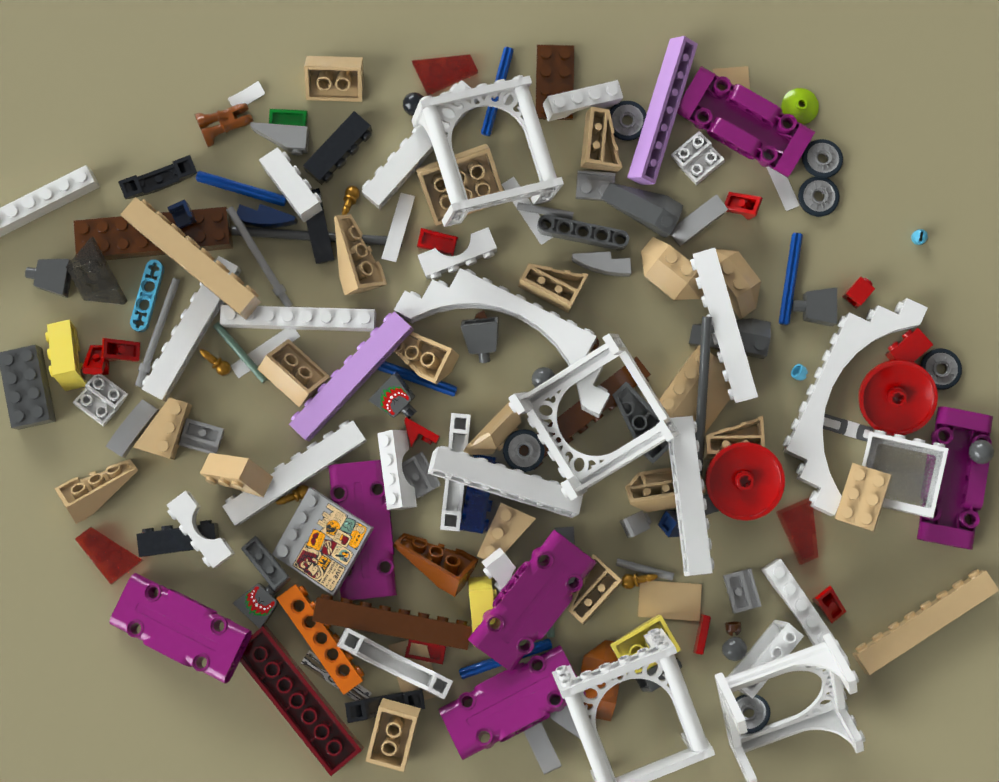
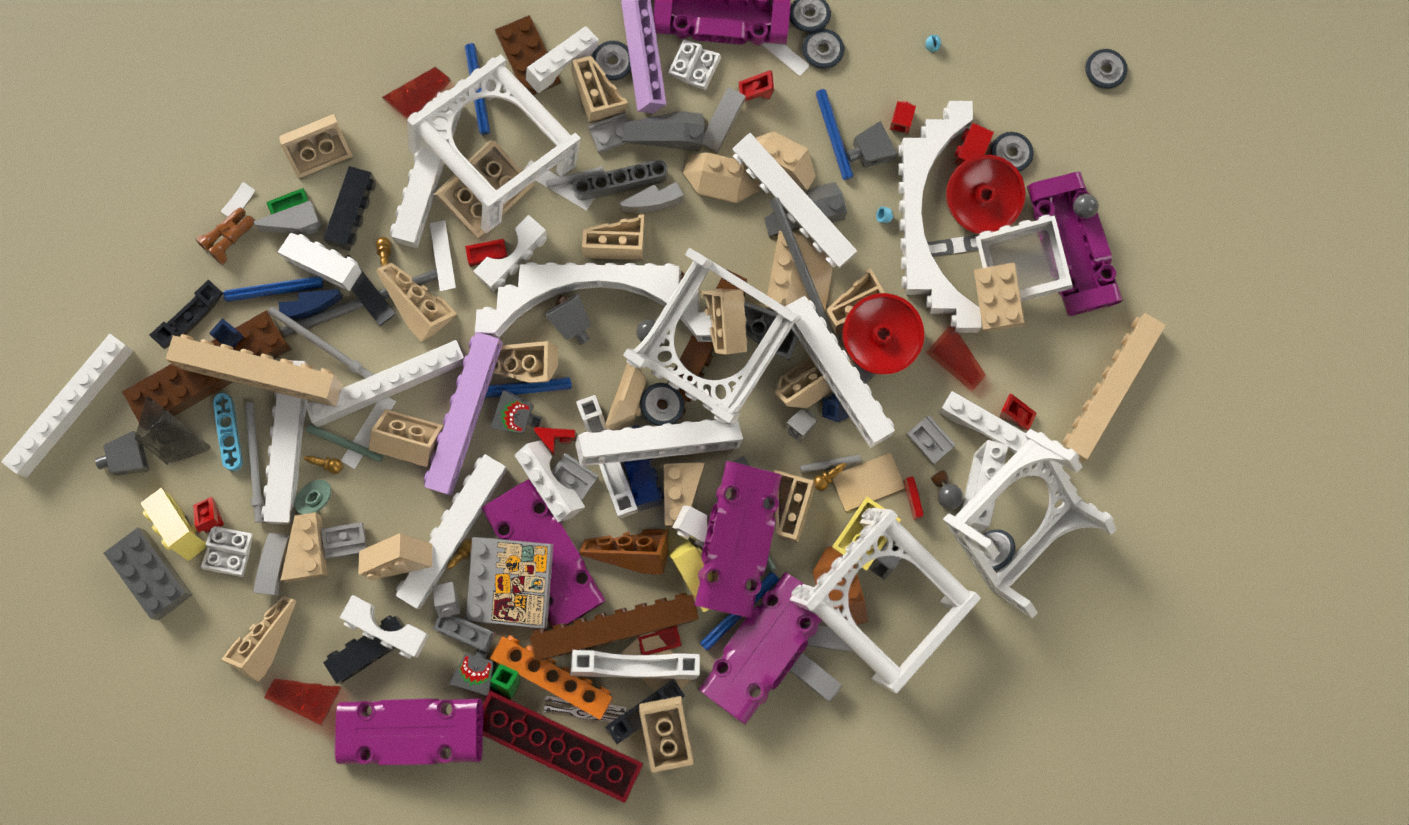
camera: 25 degrees left, 5 degrees down
(120, 350) = (225, 494): red slope -> none
(192, 387) = (313, 497): none -> sand green dish
(262, 530) = (446, 599): none -> light grey brick
(280, 623) = (505, 681): none -> green brick
(411, 102) = (400, 135): black piece -> none
(614, 405) = (727, 319): none -> tan wedge

